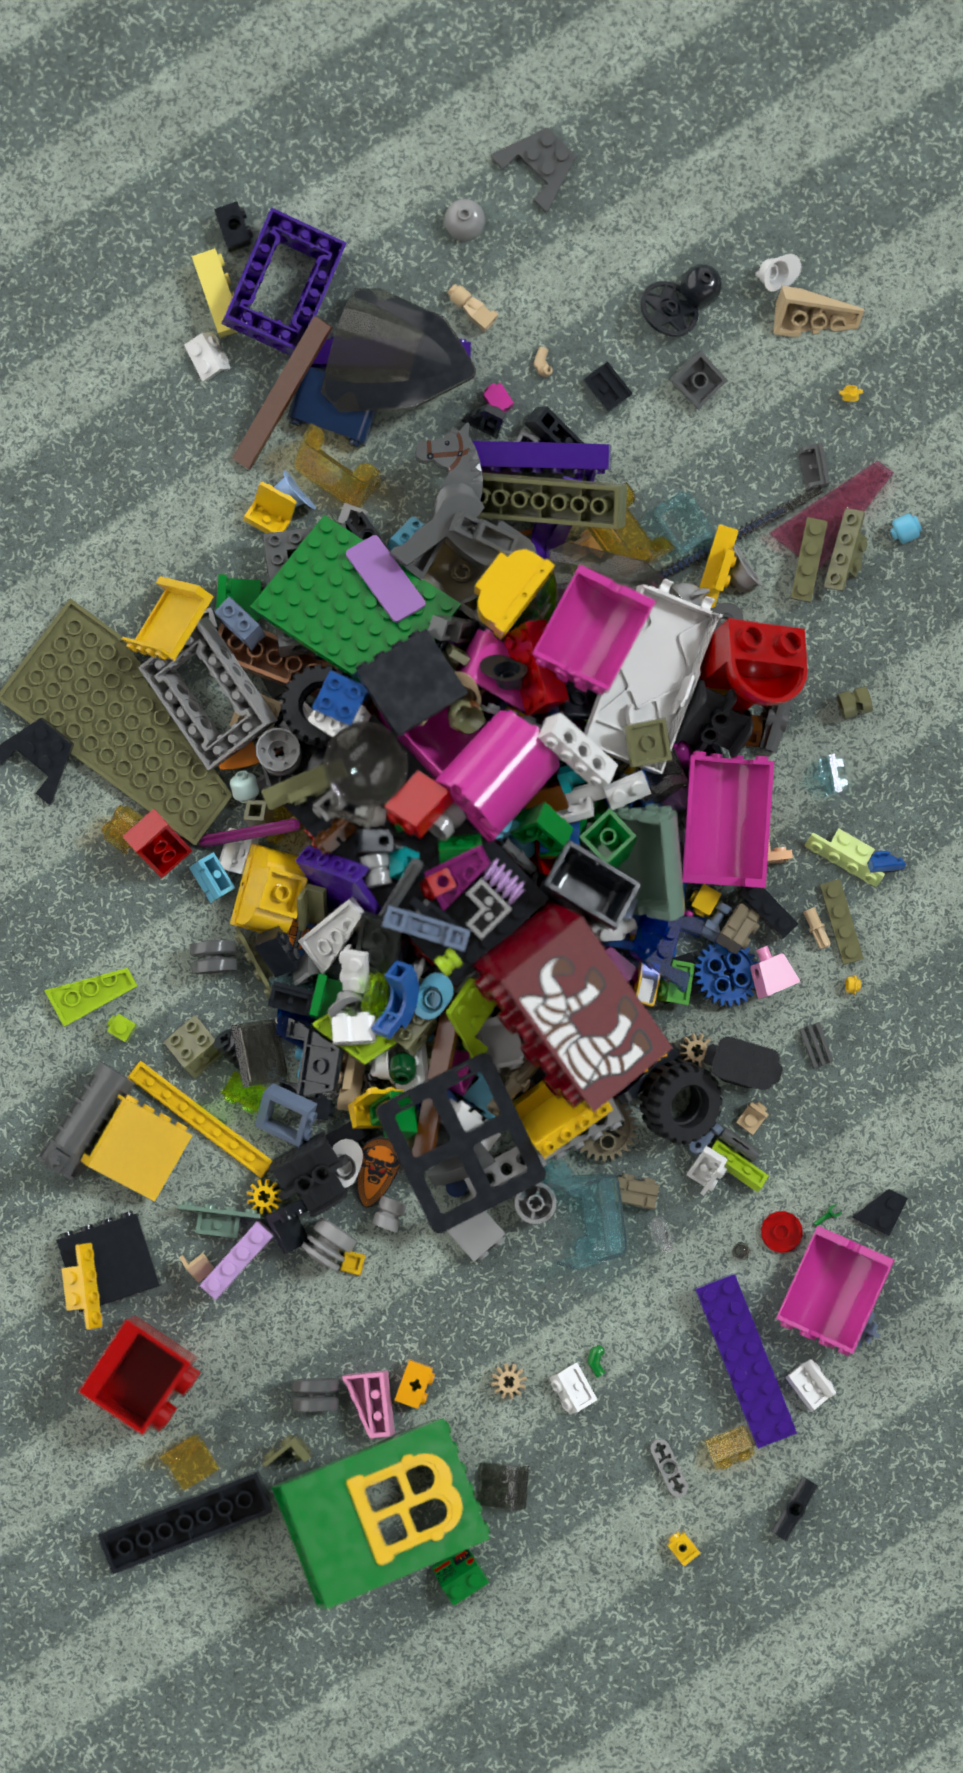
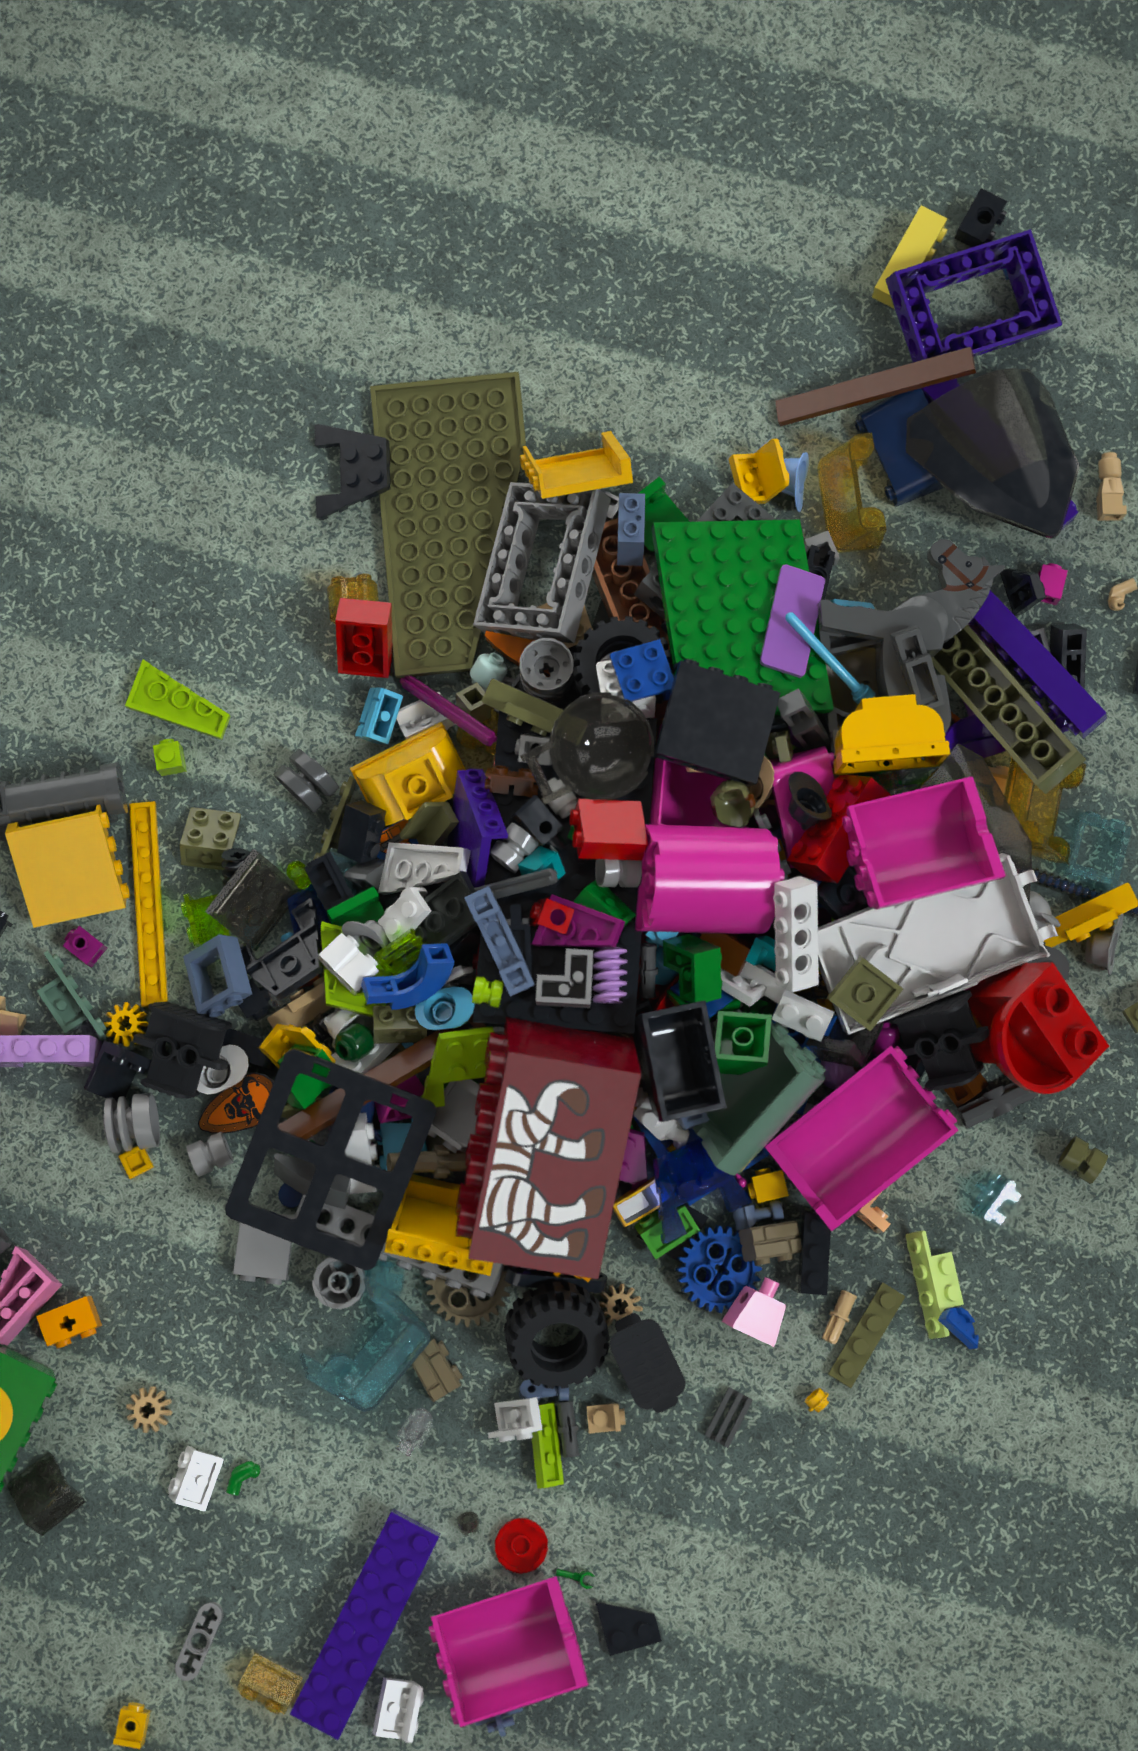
camera: 50 degrees right, 5 degrees down
(192, 1180) = (84, 946): none -> magenta brick
(207, 355) = (846, 299): white bracket -> none
(264, 1012) = (296, 872): none -> clear neon green pin
(465, 576) = (859, 691): none -> medium azure piece

